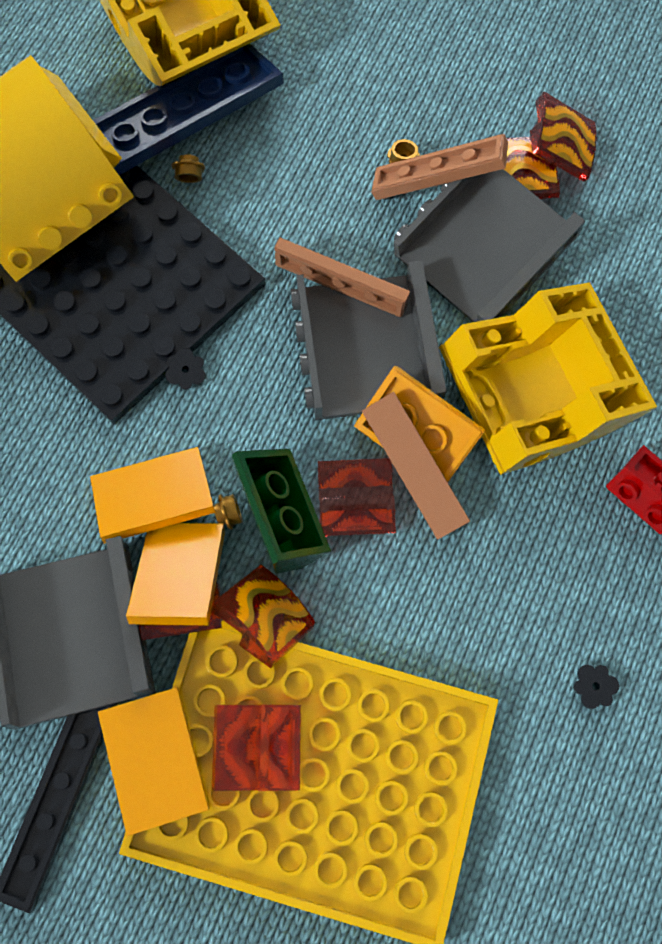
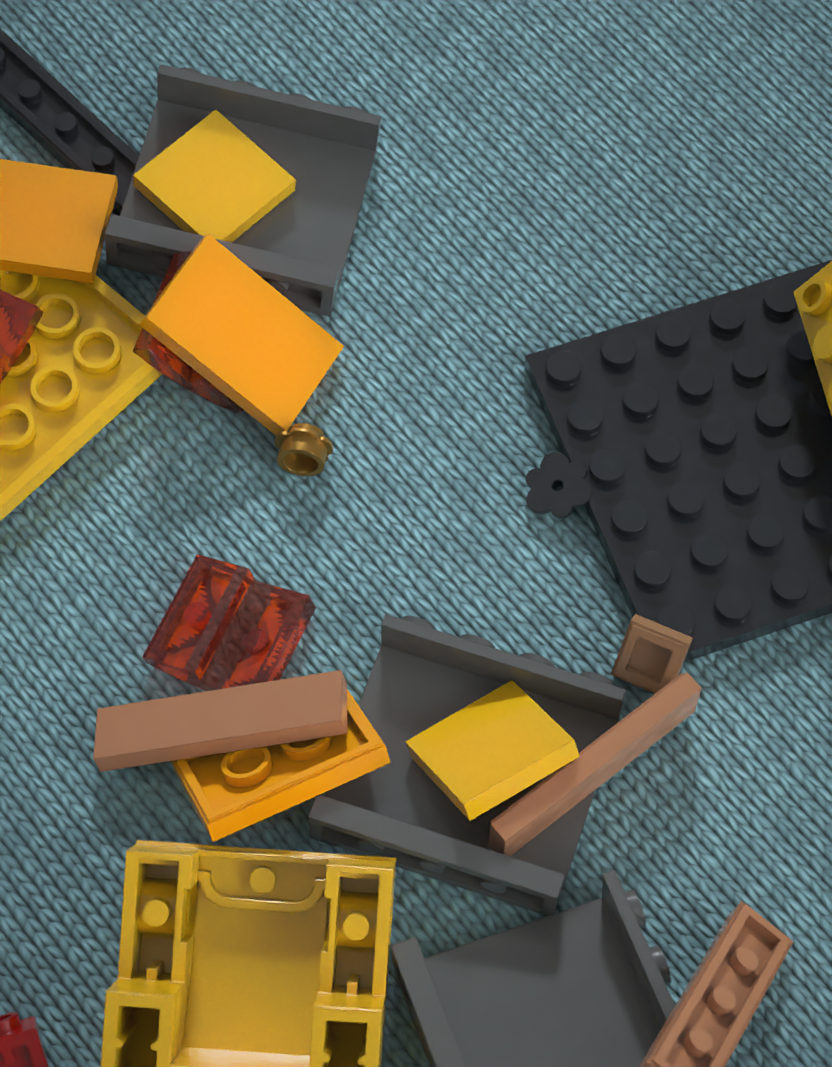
camera: 120 degrees right, 10 degrees down
(70, 653) = (214, 180): none -> yellow tile
(151, 494) = (380, 361): light orange tile -> none
(264, 281) = (650, 654): none -> medium nougat tile
(265, 615) = (120, 416): slope -> none
(281, 508) = (256, 487): dark green slope -> none
(361, 324) = (492, 749): none -> yellow tile
(402, 150) = (810, 995): pearl gold plate -> none

